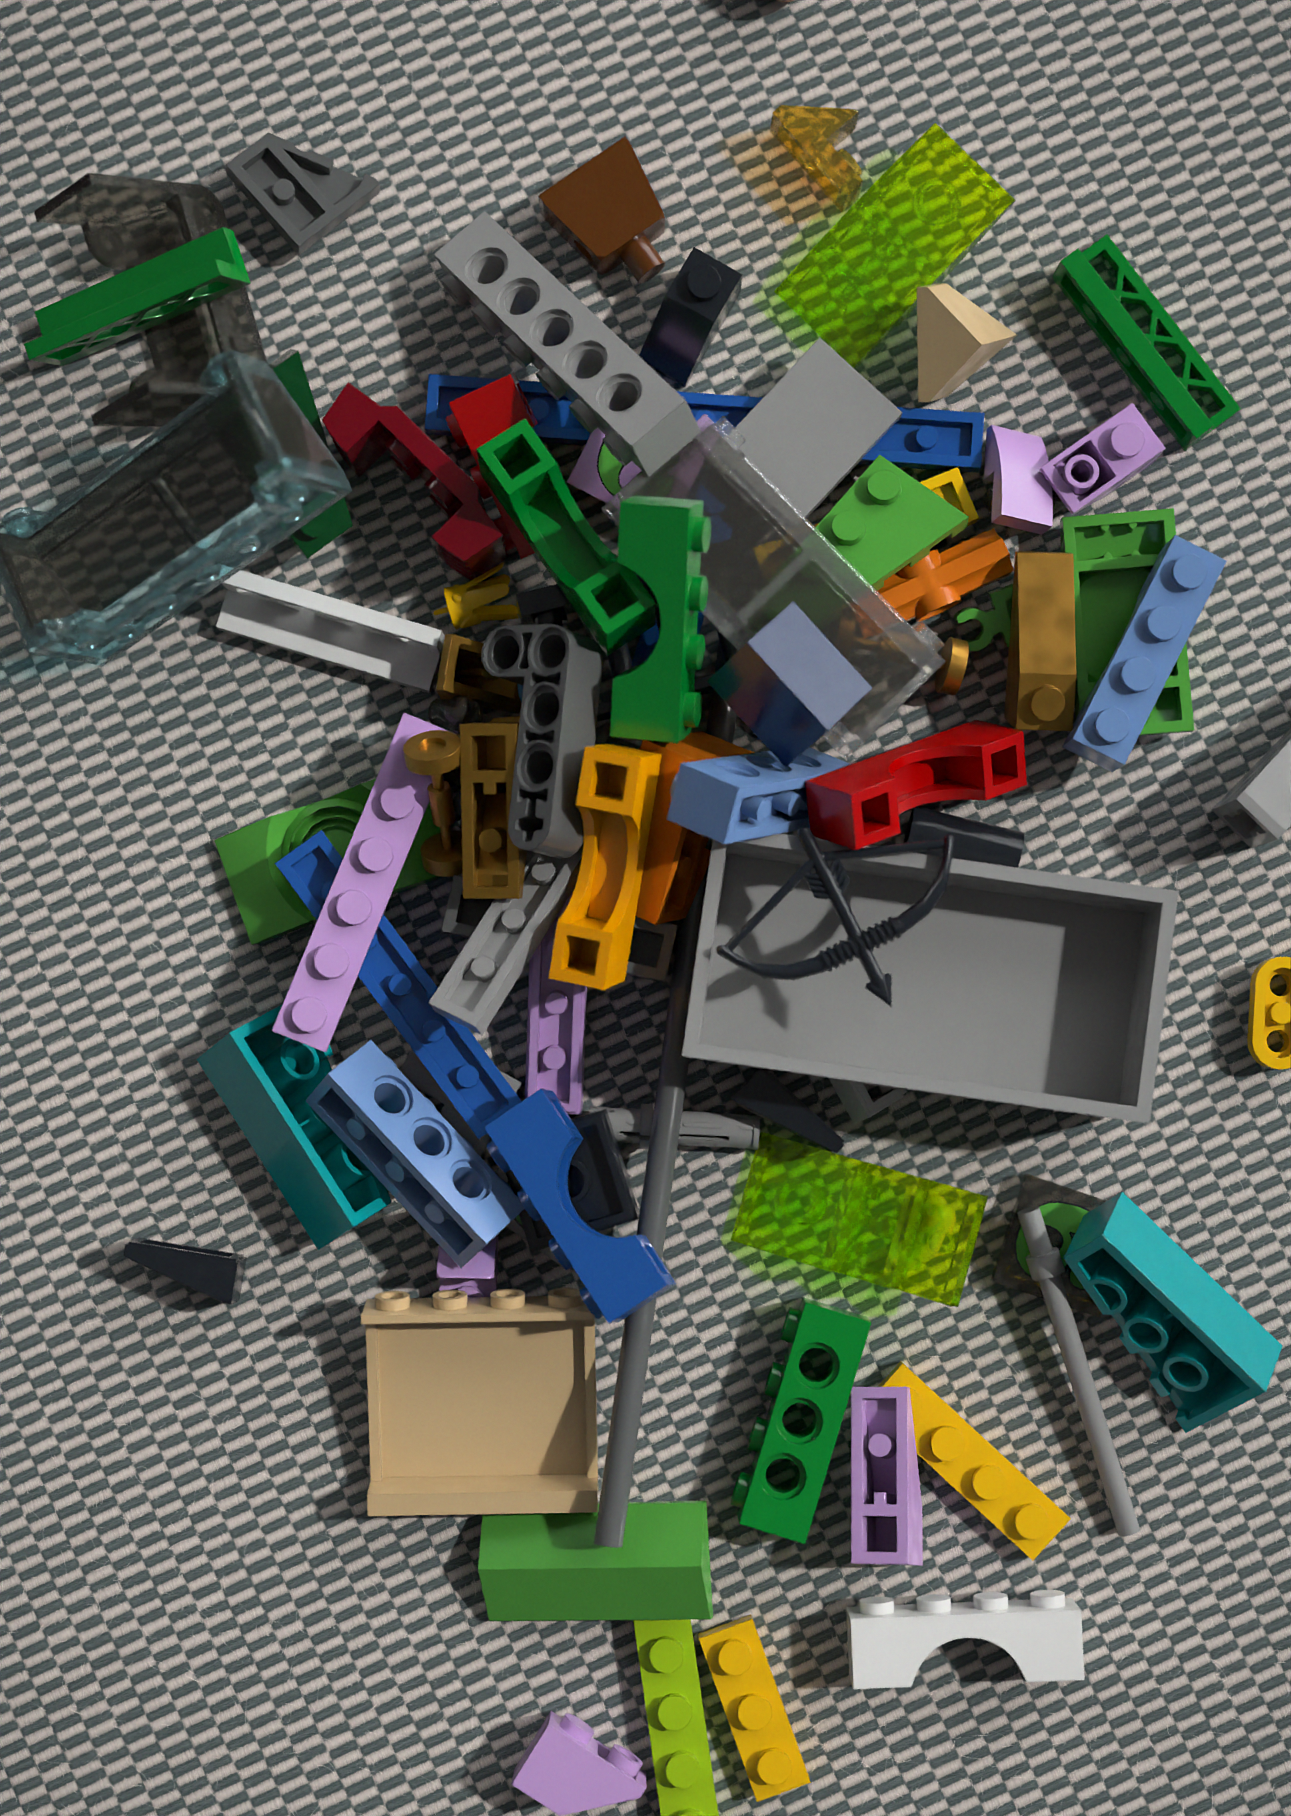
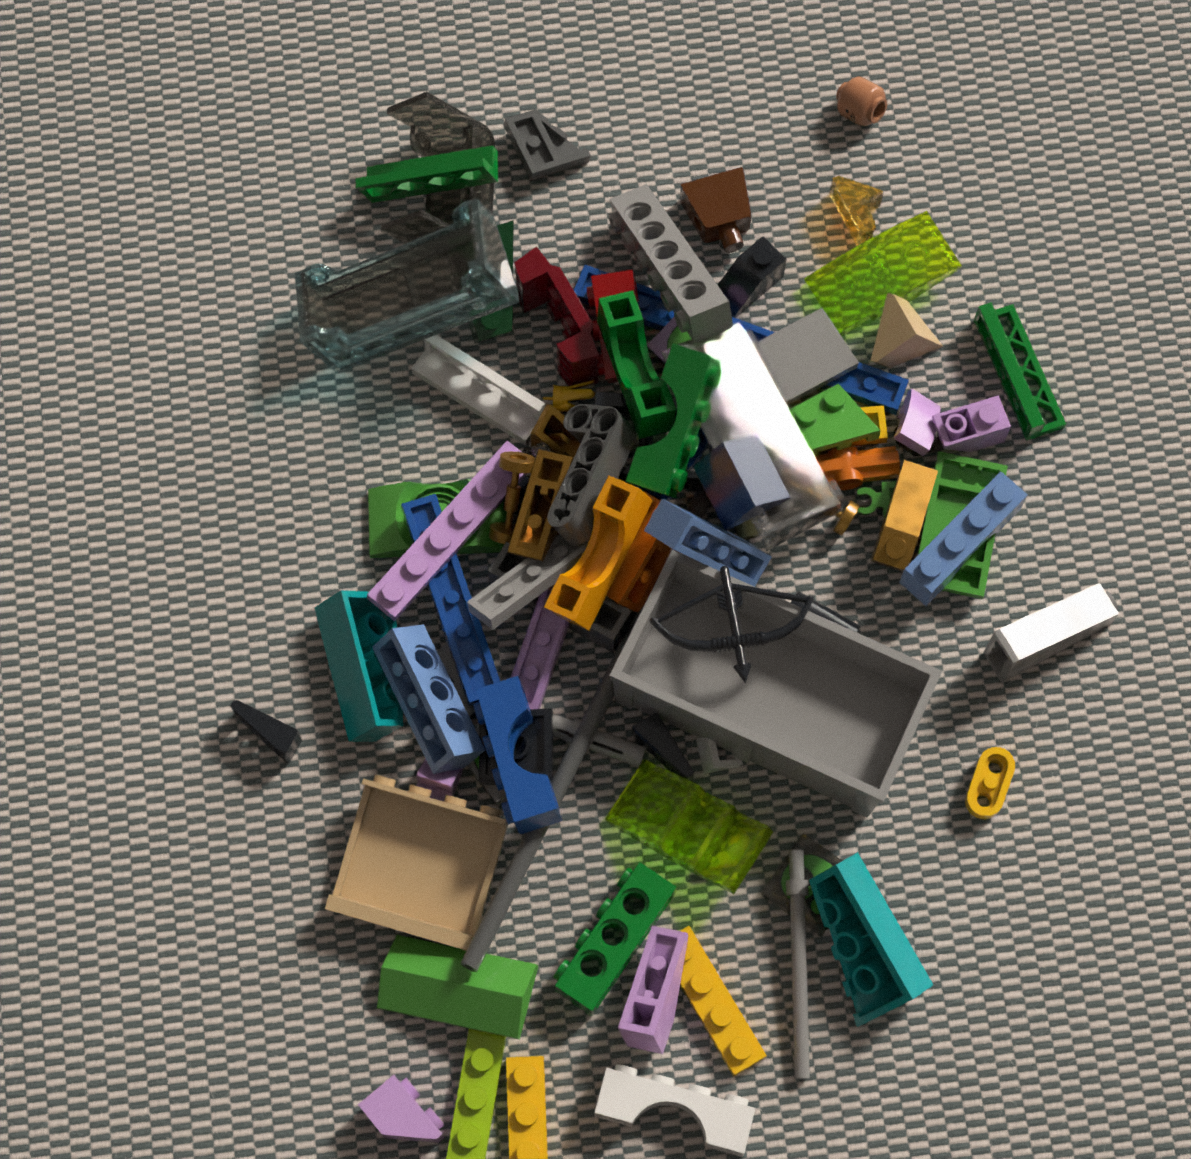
camera: 15 degrees right, 15 degrees down
(865, 798) = (802, 567): red arch -> none

